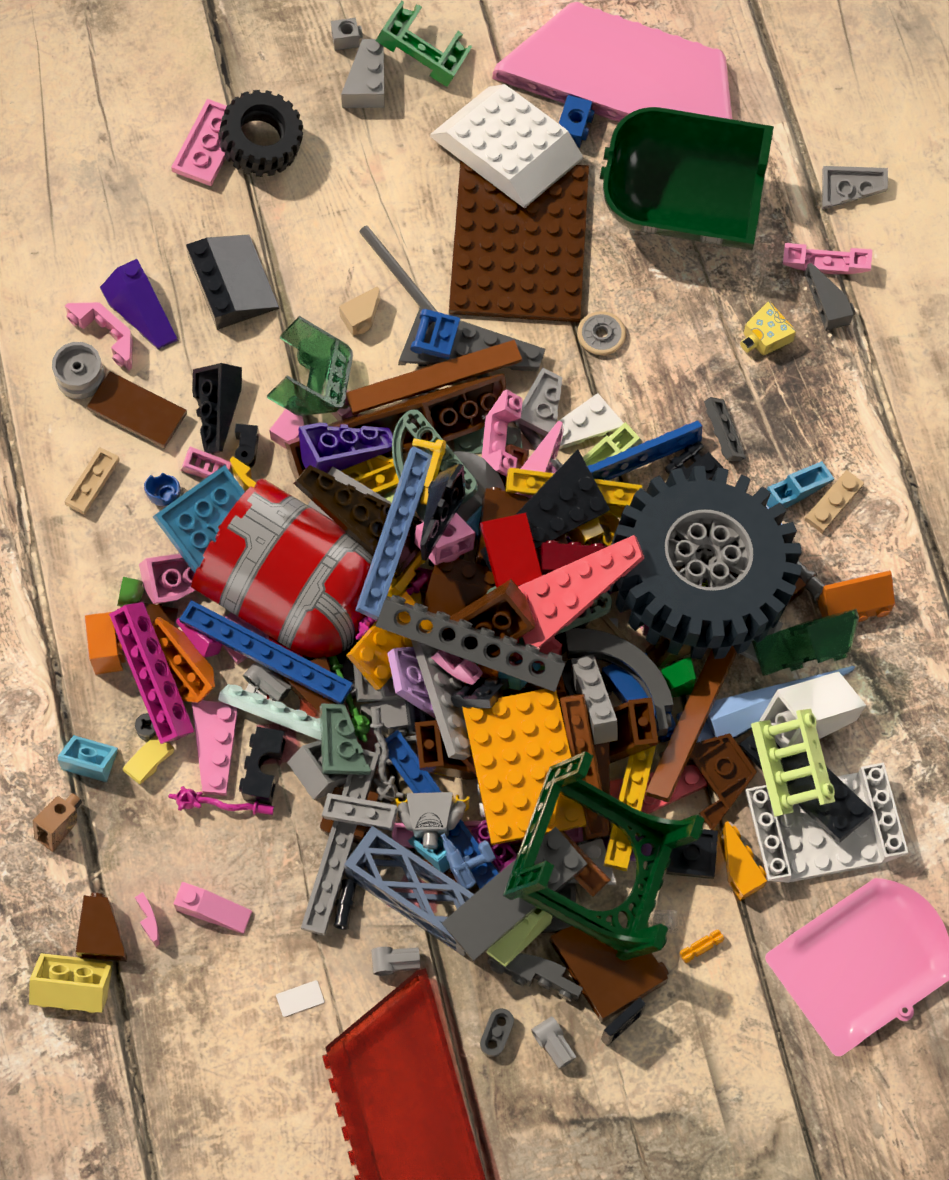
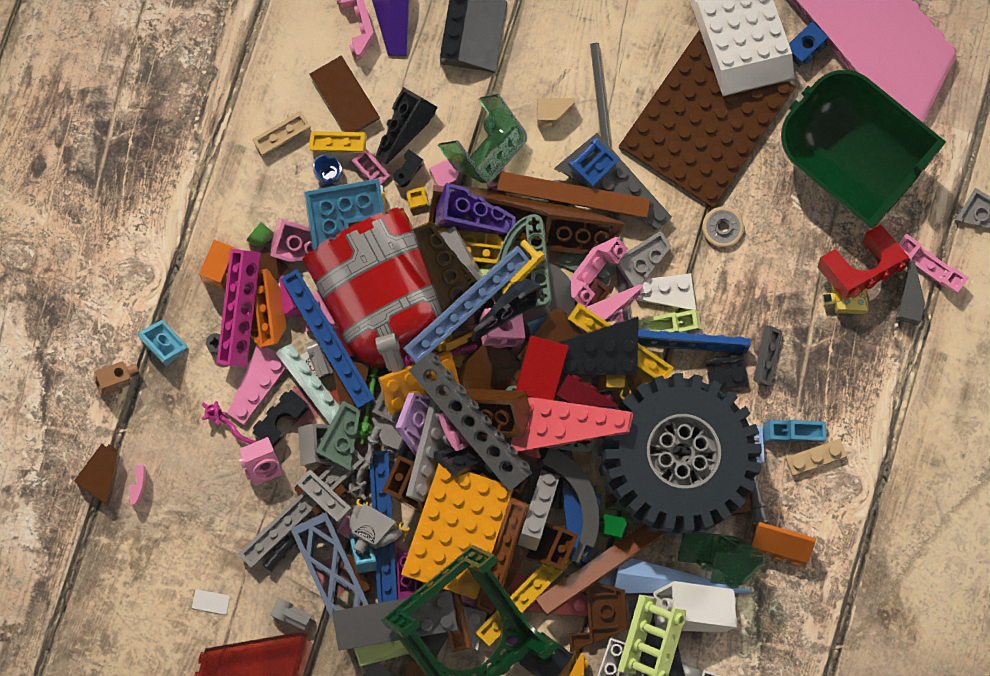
camera: 30 degrees right, 10 degrees up
(70, 983) = (59, 499): light yellow slope -> none
(78, 370) = (327, 38): light grey wheel -> none
(147, 759) = (201, 368): light yellow slope -> none
(157, 456) = (338, 141): none -> yellow plate
(211, 908) = (186, 503): bright pink slope -> none
(242, 473) = (392, 191): yellow slope -> none
(269, 817) = (260, 462): none -> bright pink brick
(273, 470) = (417, 198): none -> yellow tile
(340, 617) = (389, 348): none -> light grey piece
(461, 866) = (372, 577): medium blue piece -> none
(764, 309) = (851, 281): none -> red arch

